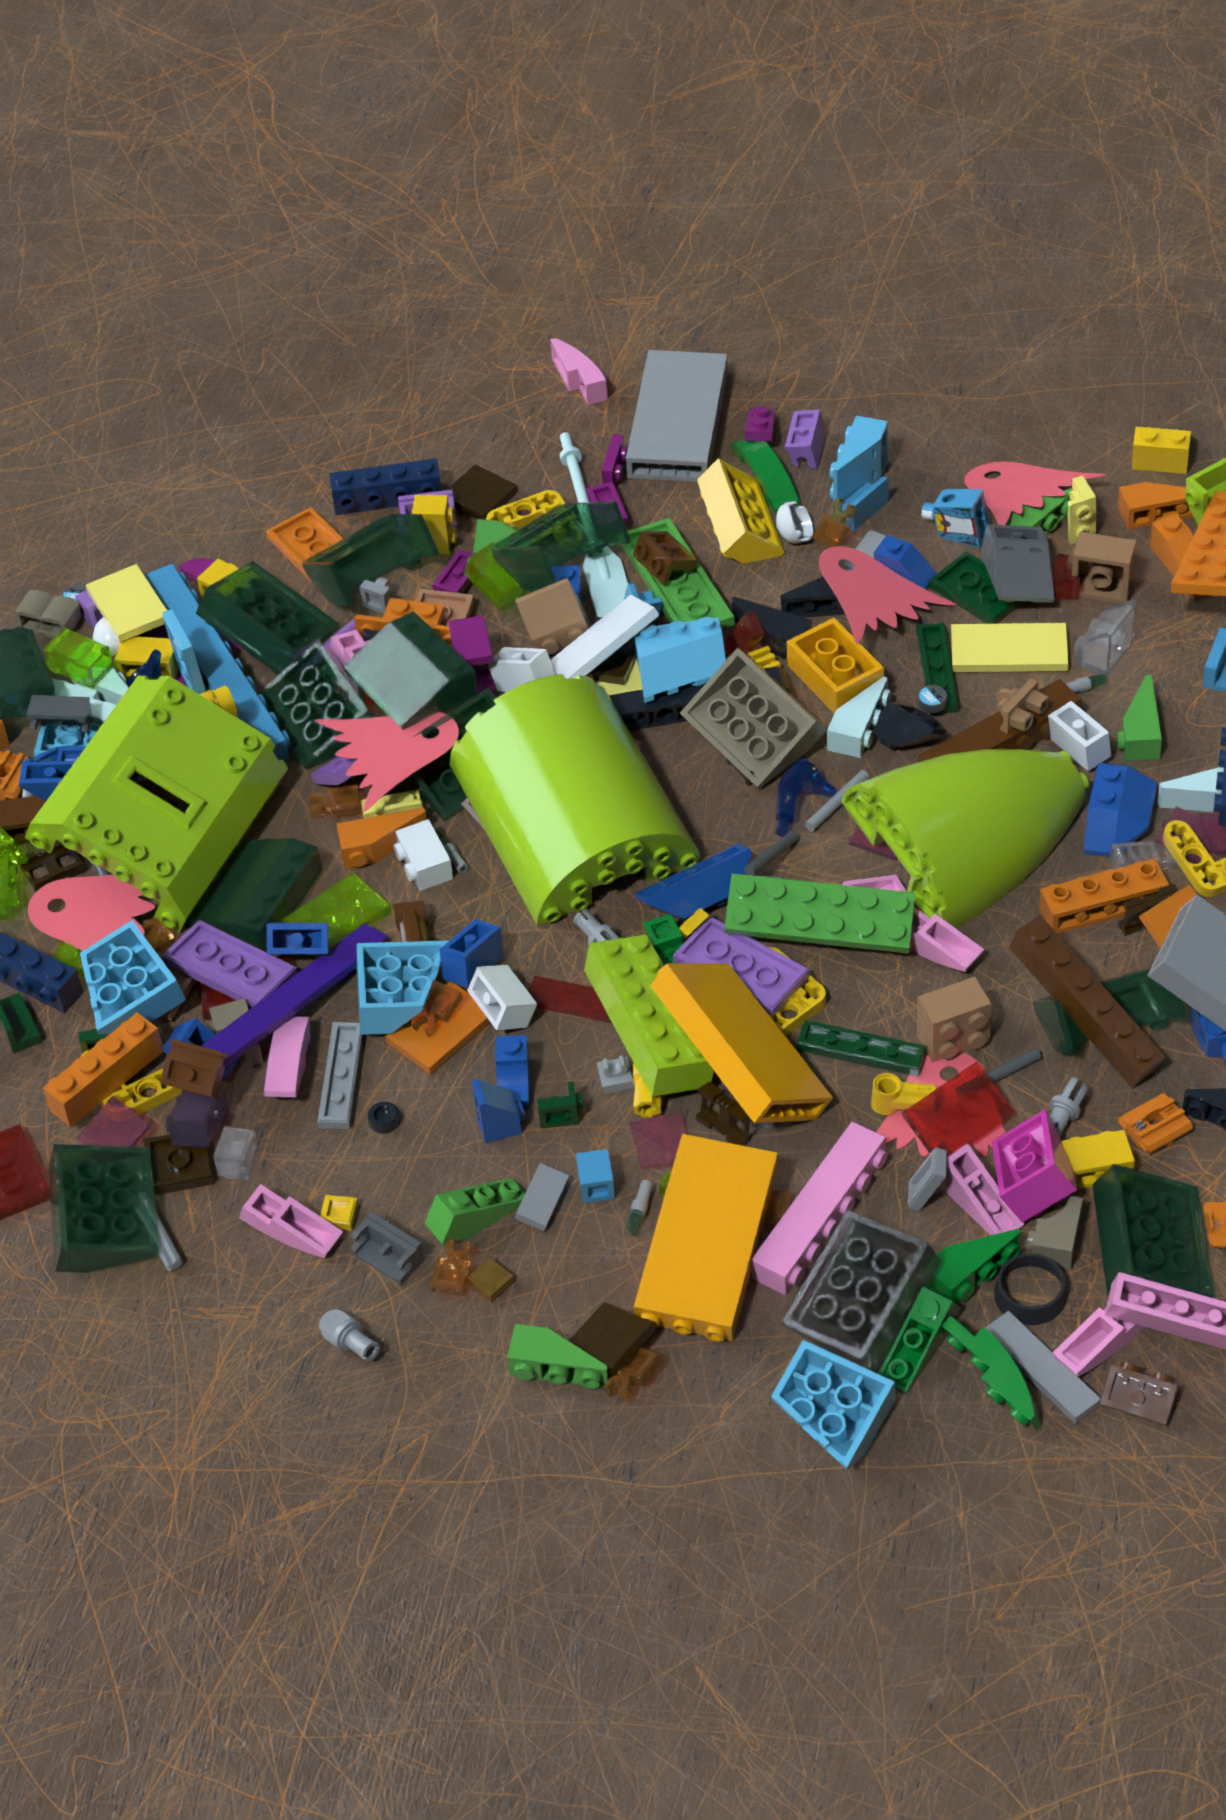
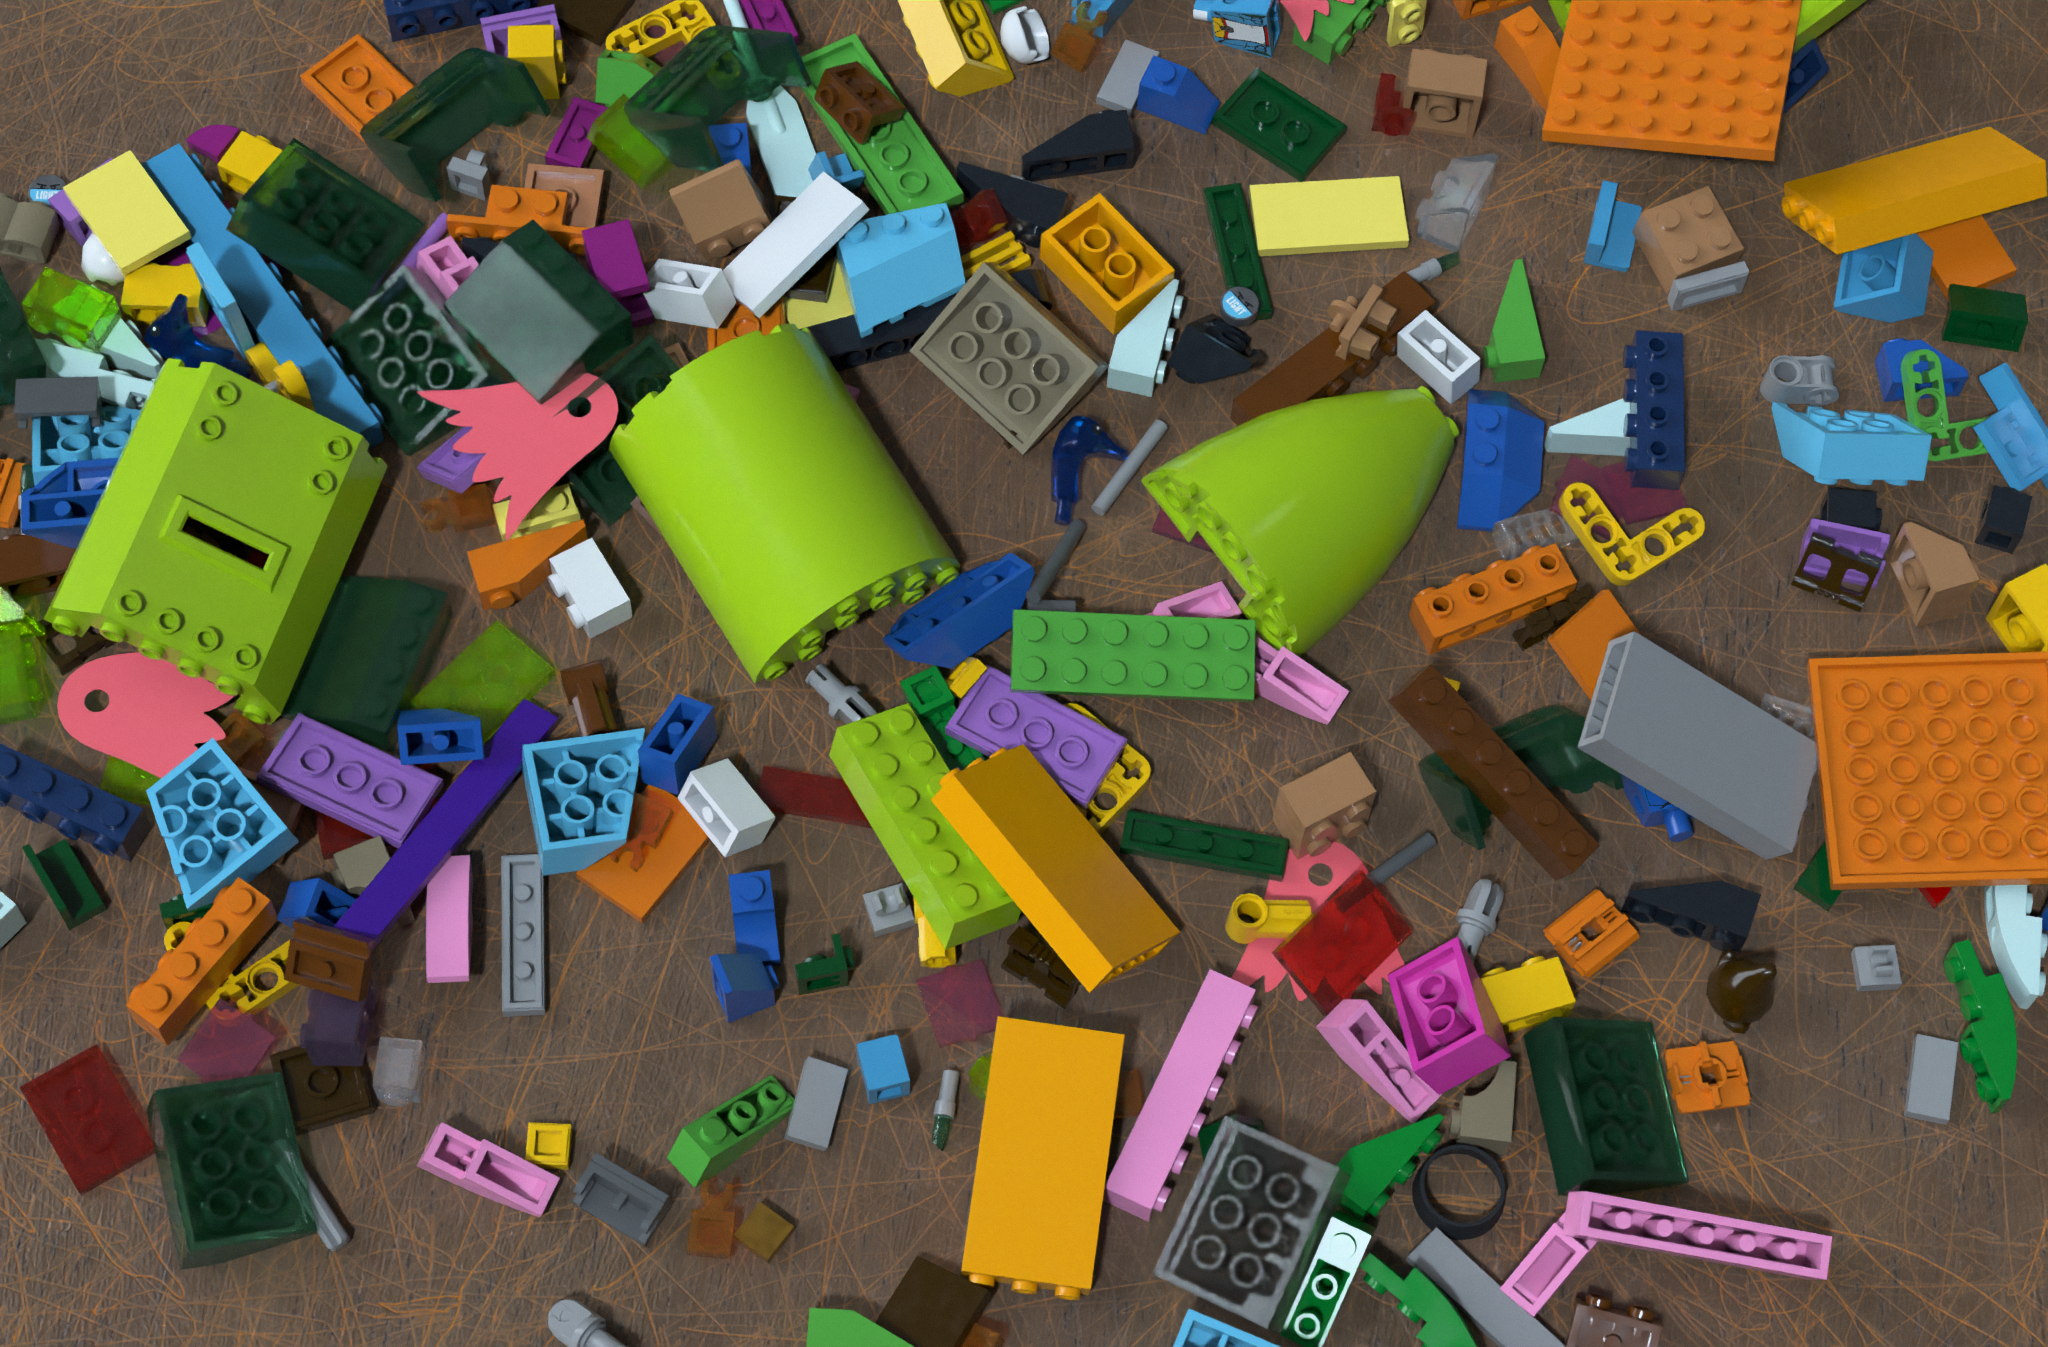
camera: 15 degrees left, 15 degrees up
(383, 1117) = (589, 996): black tile -> none
(456, 860) = (626, 579): light grey piece -> none
(872, 590) = (1142, 143): coral piece -> none
(927, 1179) = (1316, 1048): light grey tile -> none
(1018, 563) = (1331, 92): dark grey slope -> none

